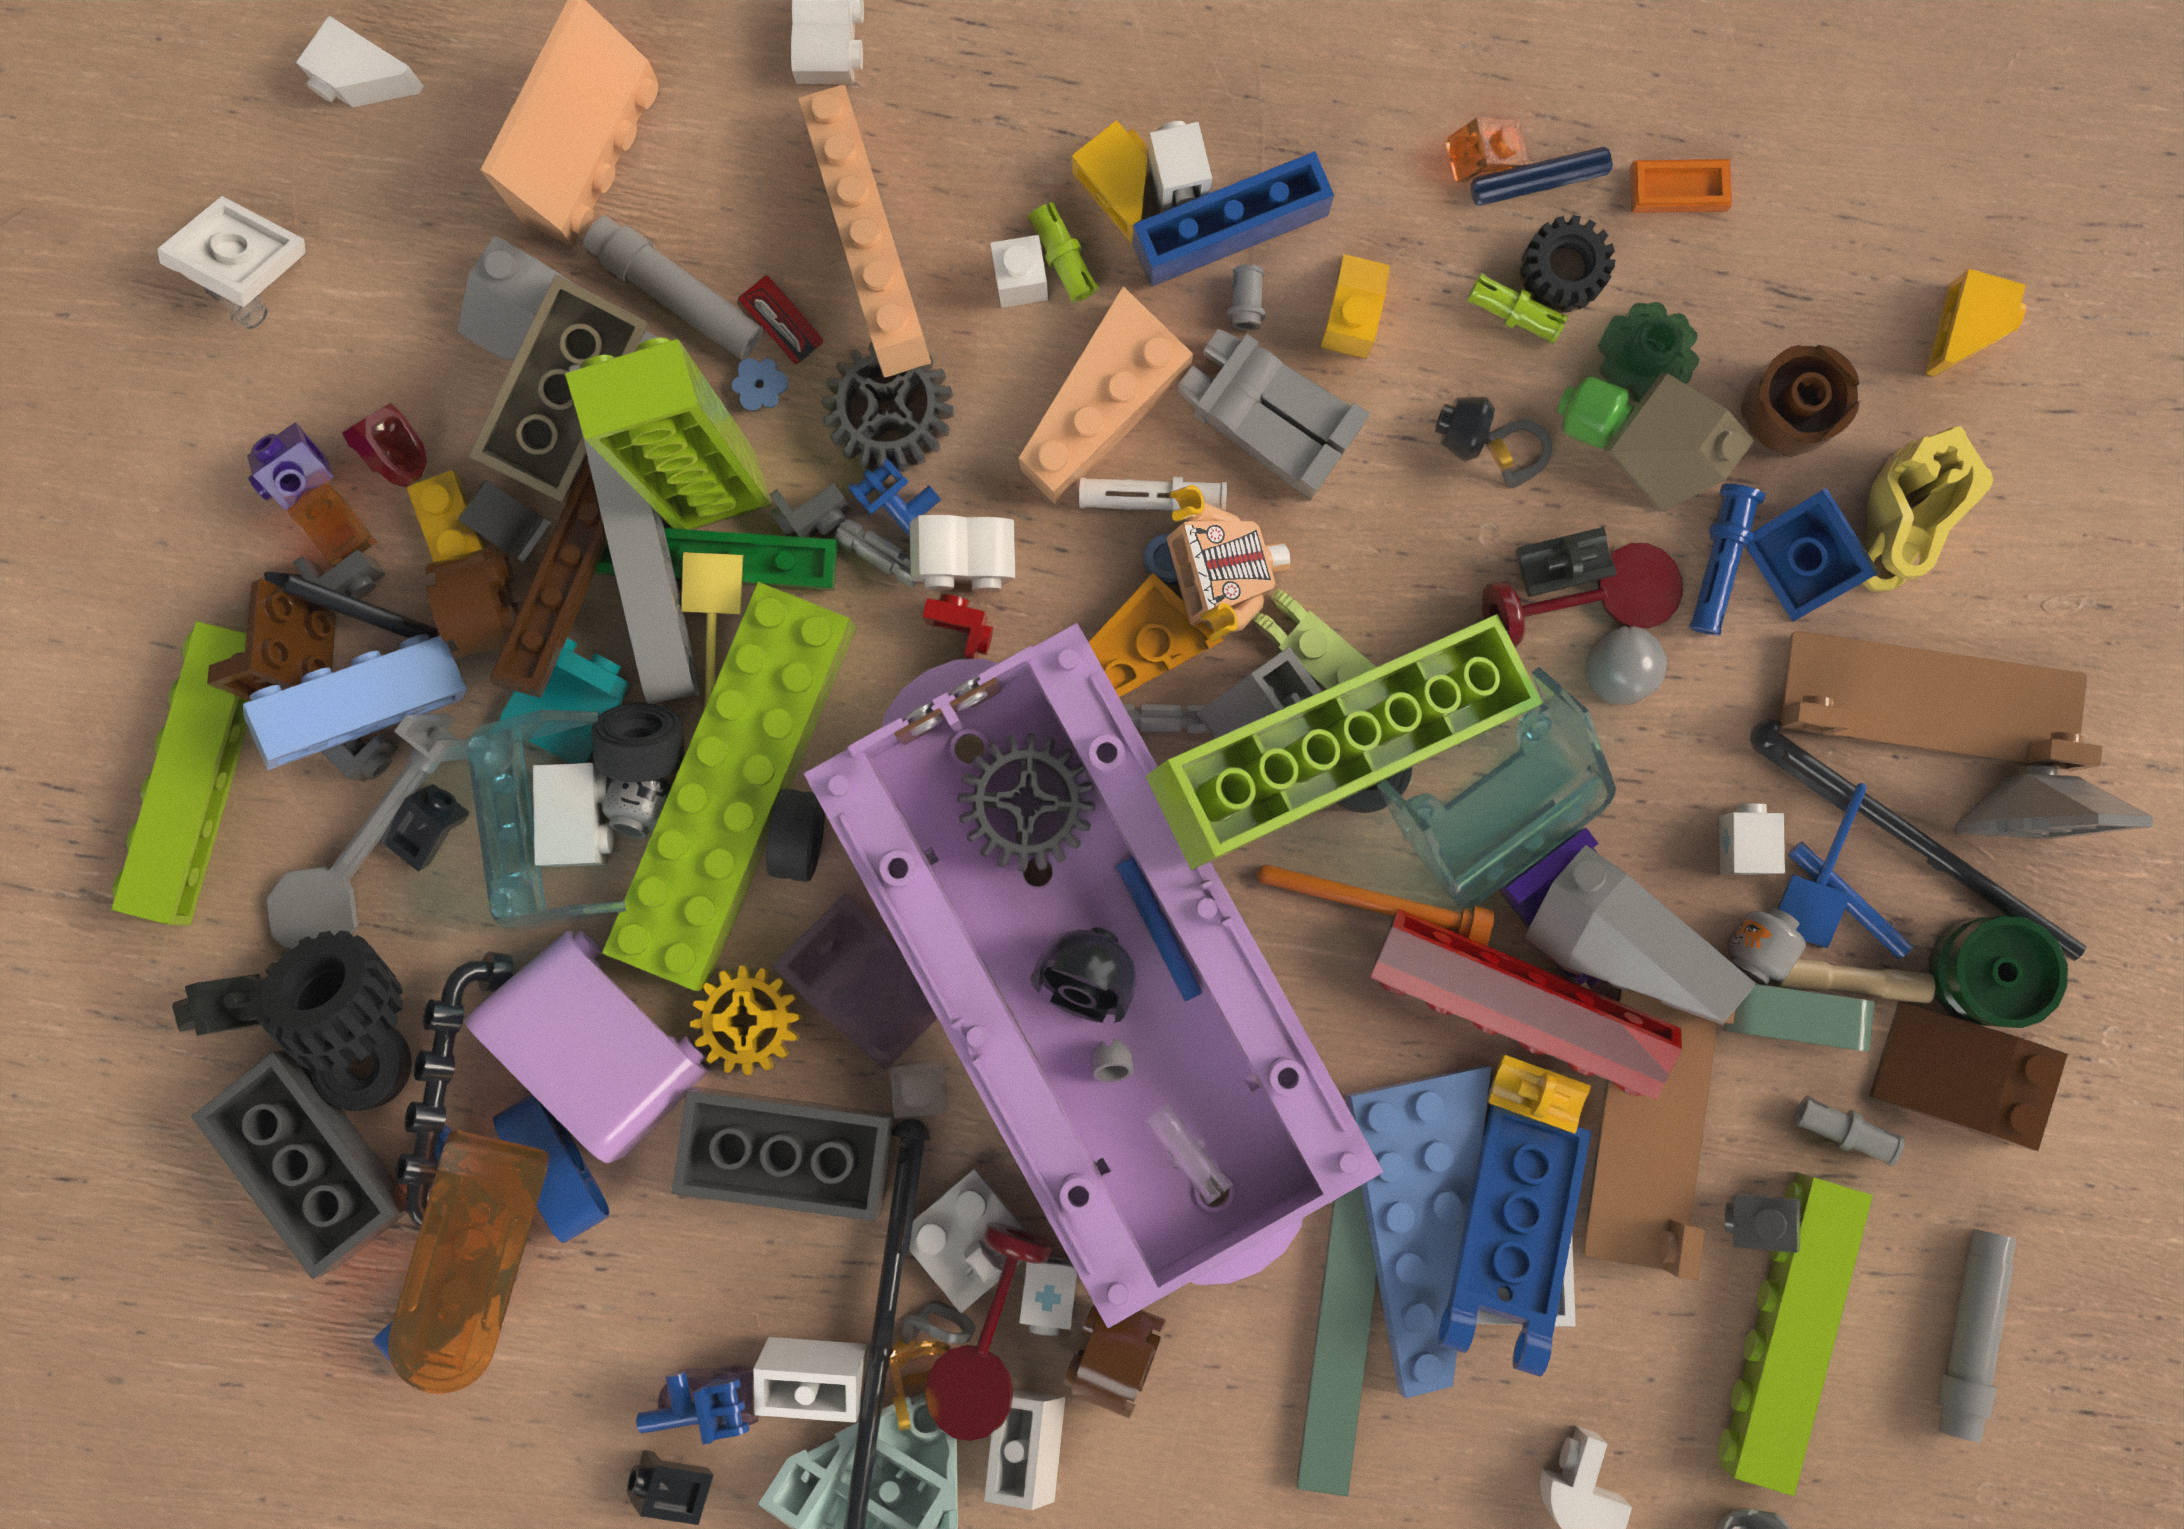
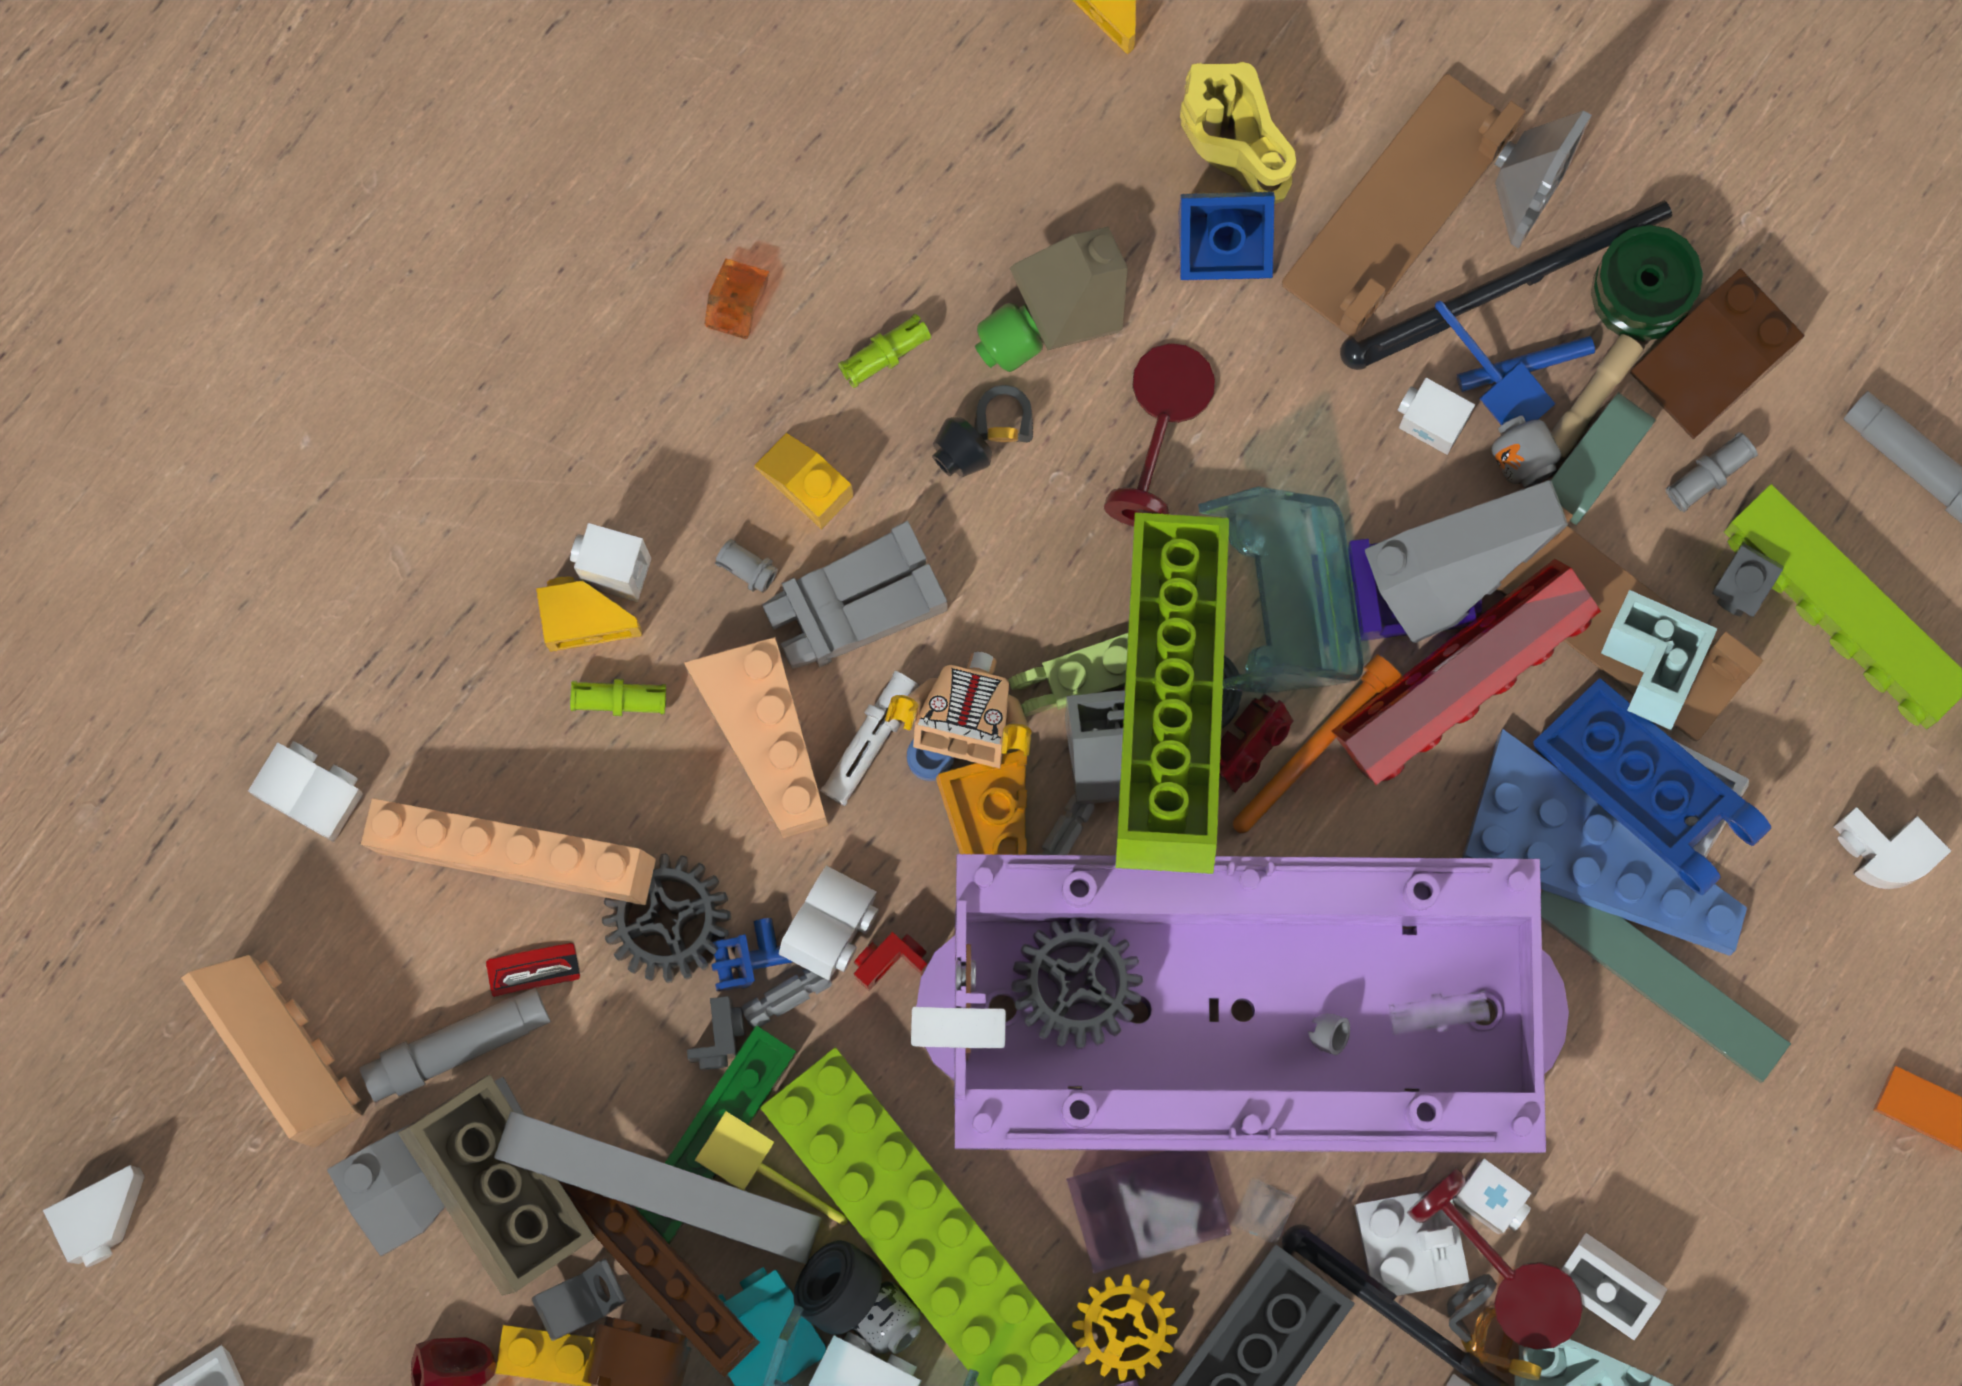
camera: 60 degrees left, 5 degrees down
(668, 434) = (629, 1088): lime brick -> none
(753, 373) = (566, 1018): medium blue plant -> none
(795, 835) = (992, 1196): black tyre -> none
(912, 712) = (958, 1027): none -> white sticker
(1019, 271) = (615, 742): white brick -> none
(1087, 974) = (1248, 1012): black cylinder -> none
(1114, 1360) = (1576, 1169): reddish brown brick -> none
(1159, 929) = (1241, 934): blue bar -> none
(1232, 219) = (676, 541): blue brick -> none
(1368, 844) = (1264, 726): none -> dark red hinge
(1538, 1093) = (1545, 703): yellow hips -> none
(1541, 176) = (783, 267): dark blue axle -> none
(1565, 562) = (1121, 432): pearl dark grey hips -> none
(1587, 244) = (861, 263): black tyre -> none
(1626, 665) = (1233, 432): light grey hair -> none
(1646, 345) = (979, 265): clear green plant -> none
(1655, 1178) = (1662, 646): none -> light aqua brick
(1680, 185) = (857, 159): orange tile -> none
(1730, 536) = (1175, 288): blue pin -> none
(1824, 382) = (1092, 194): reddish brown brick -> none

